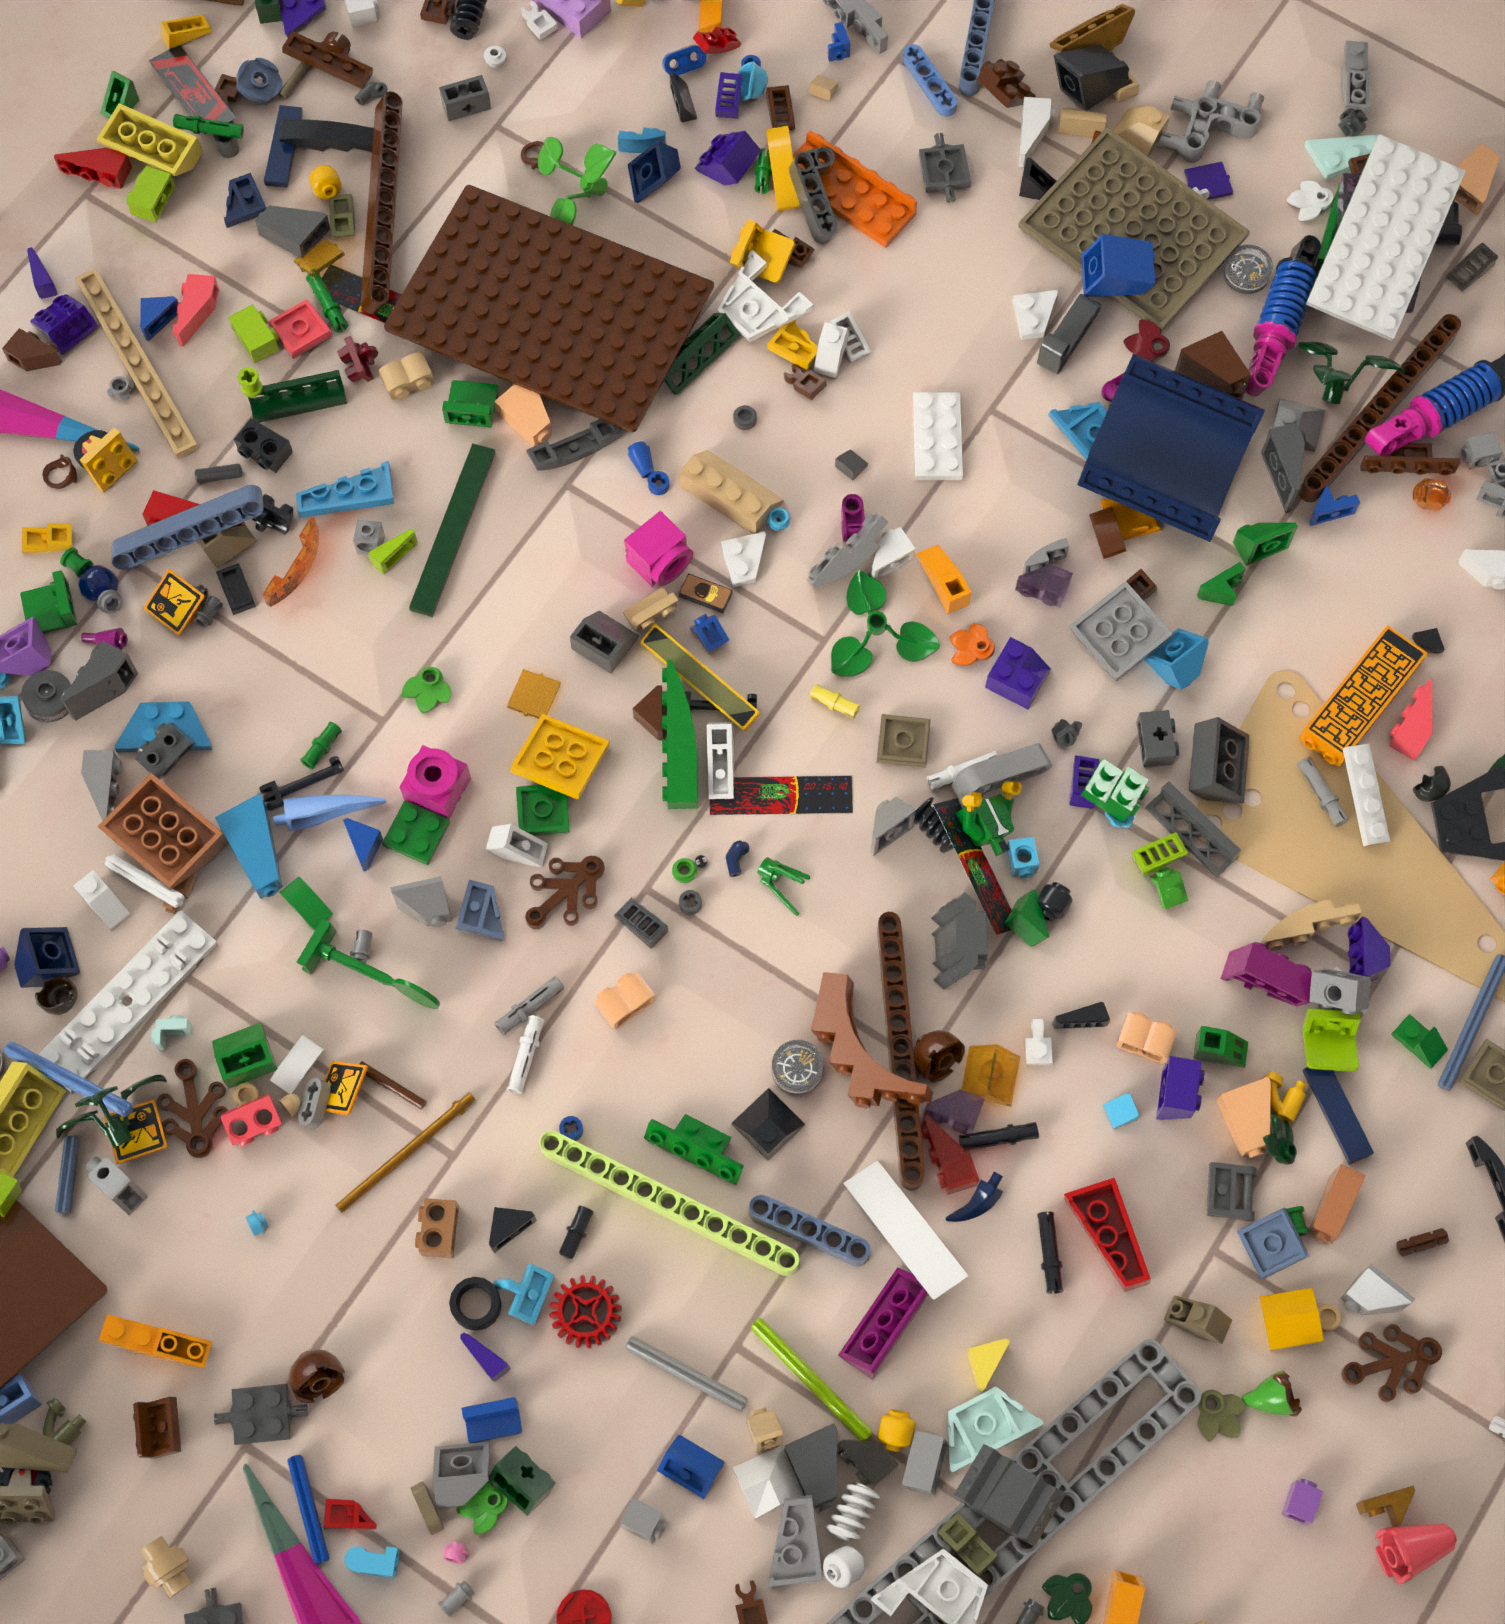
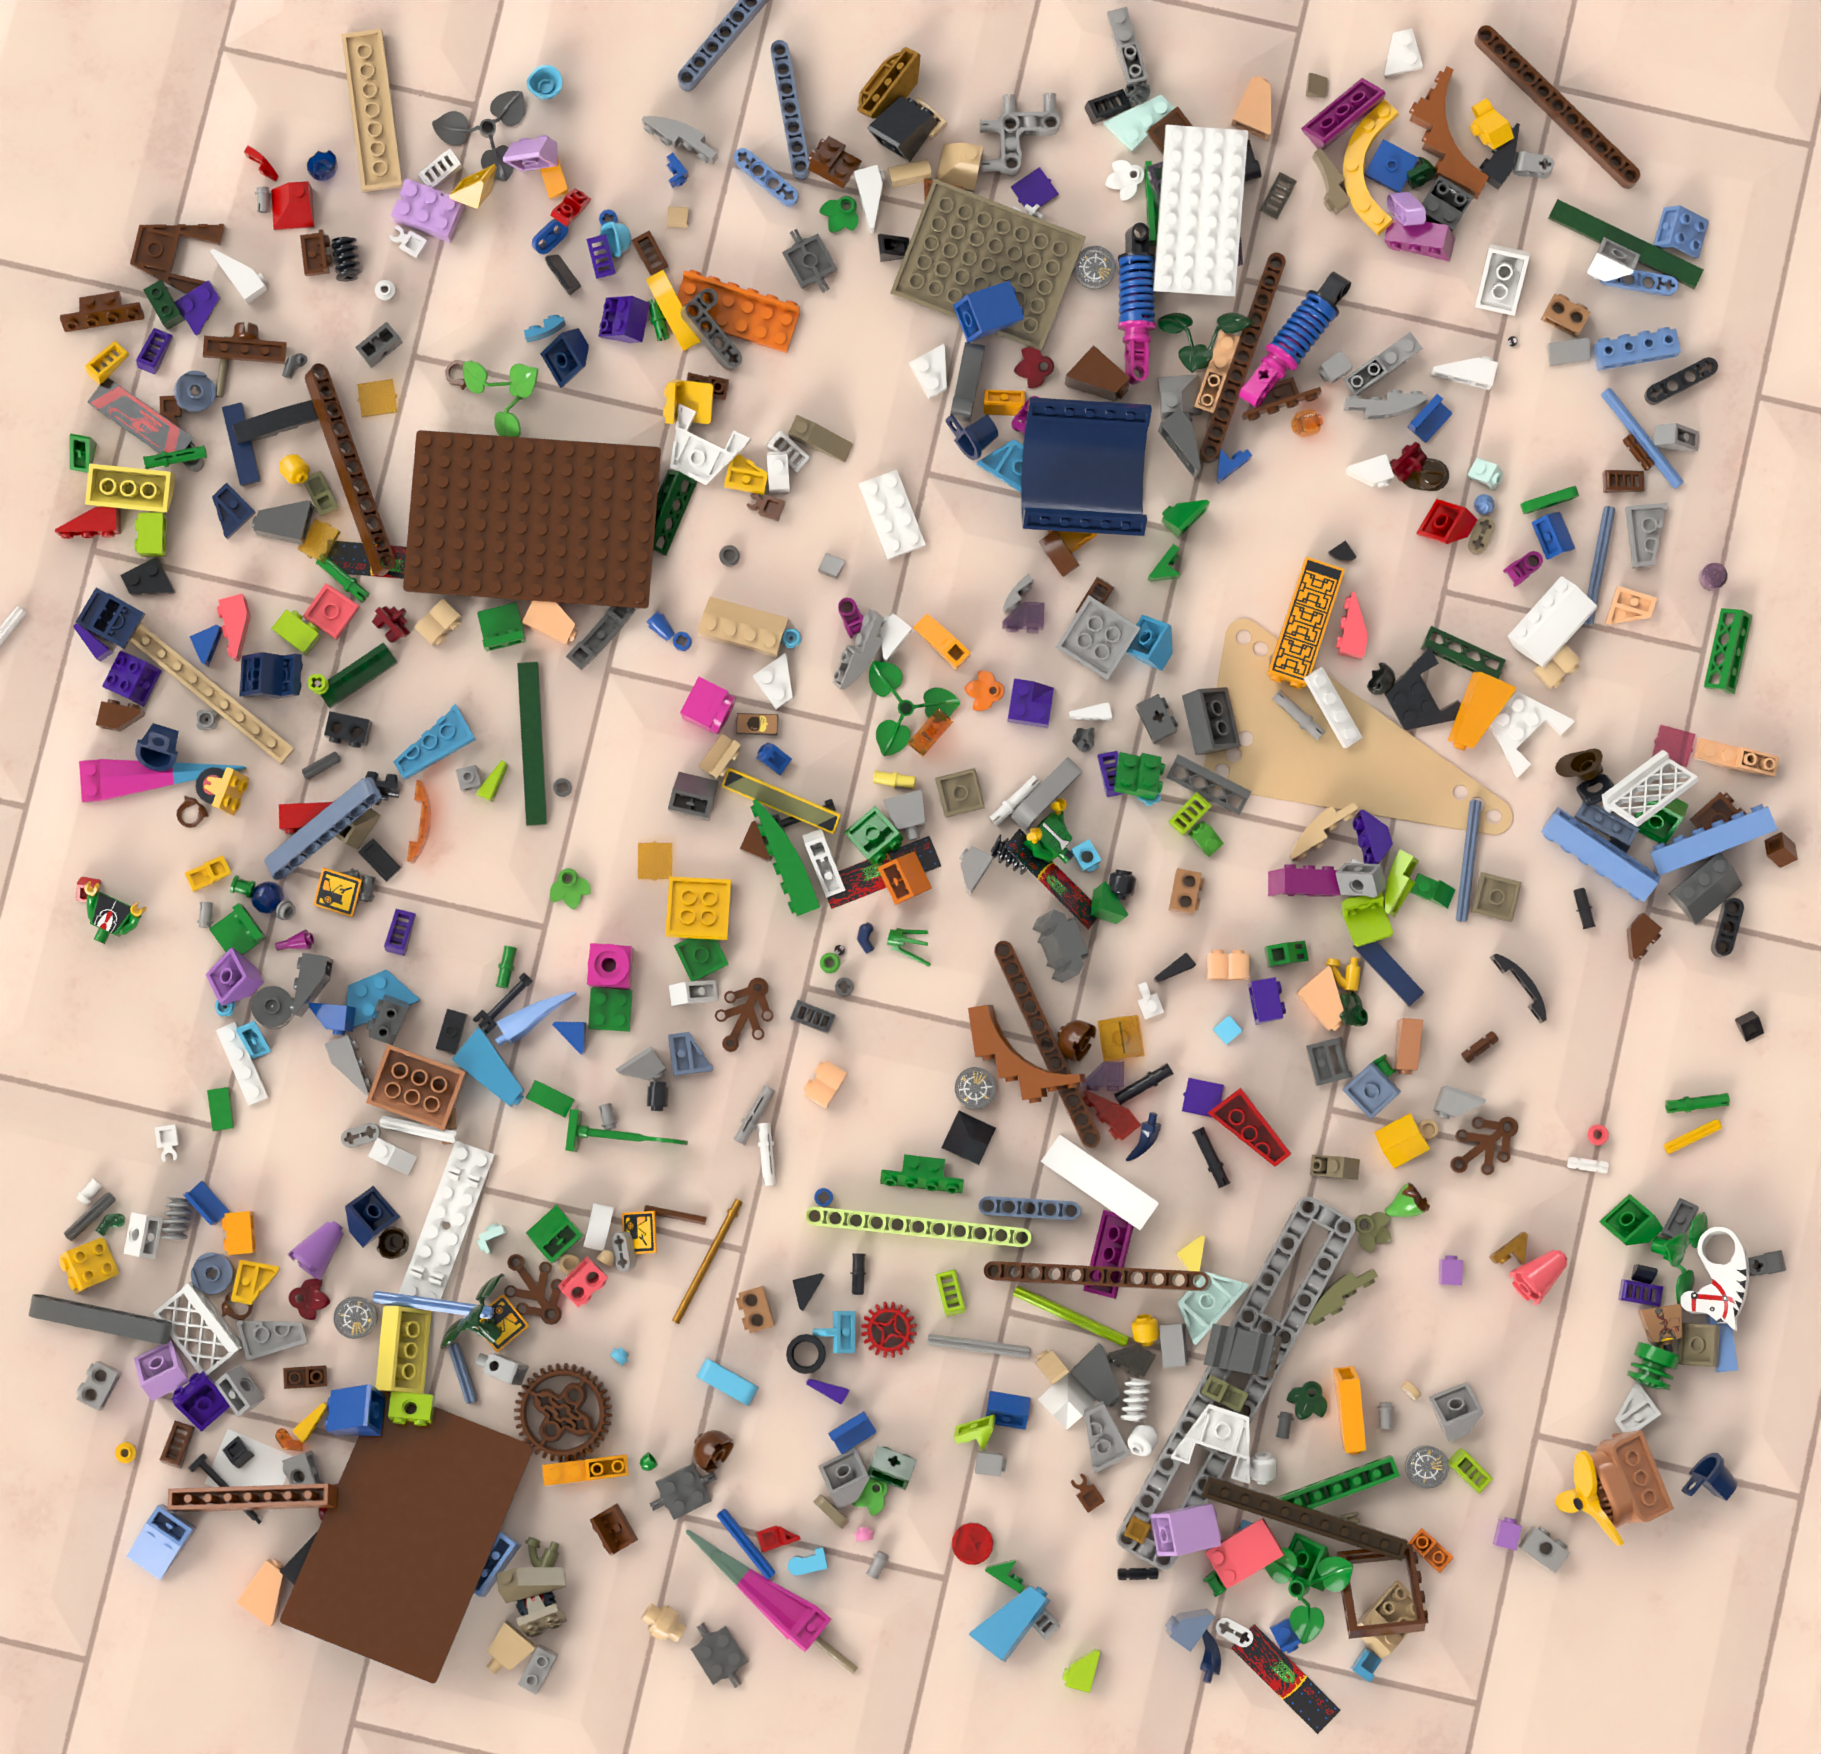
camera: 20 degrees left, 15 degrees up
(23, 578) = (205, 915): none -> light grey pin
(53, 390) = (157, 748): none -> dark blue container
(68, 253) = (110, 618): none -> dark blue bracket
(79, 861) = (363, 1139): none -> light grey beam
(109, 727) = (334, 1017): none -> slope
(127, 237) = (148, 578): none -> black wing
(135, 1223) = (588, 1422): none -> reddish brown gear
(207, 364) = (271, 675): none -> dark blue bracket
(214, 682) = (396, 949): none -> dark purple slope
(228, 46) = (143, 358): none -> dark purple slope
(230, 791) = (451, 1031): none -> black plate
(234, 1362) = (648, 1462): none -> green hinge
(369, 1301) = (727, 1381): none -> medium azure beam
(428, 943) = (657, 1096): none -> black brick
(441, 150) = (377, 398): none -> clear yellow piece
(466, 577) = (560, 781): none -> dark grey bush
(646, 1474) = (977, 1429): none -> lime slope
(671, 1314) = (954, 1310): none -> lime slope
(789, 751) = (874, 836): none -> plate
(804, 806) = (904, 878): none -> orange slope
(835, 739) = (907, 812): none -> light grey torso
(870, 1344) = (1087, 1276): none -> reddish brown beam
(887, 334) = (819, 438): none -> dark tan slope
(893, 664) = (930, 732): none -> clear orange slope
(992, 138) = (838, 216): none -> green plate
(1056, 383) = (974, 437): none -> dark blue container
(1062, 1176) = (1201, 1096): none -> dark purple piece
(1084, 707) = (1097, 712): none -> white slope
(1099, 367) = (1003, 402): none -> light orange slope
(1123, 935) = (1180, 890): none -> medium nougat brick
(1142, 1480) = (1331, 1299): none -> olive slope
(1301, 132) = (1097, 114): none -> black slope
(1347, 409) = (1216, 372): none -> light nougat slope
(1384, 1014) = (1398, 882): none -> lime slope

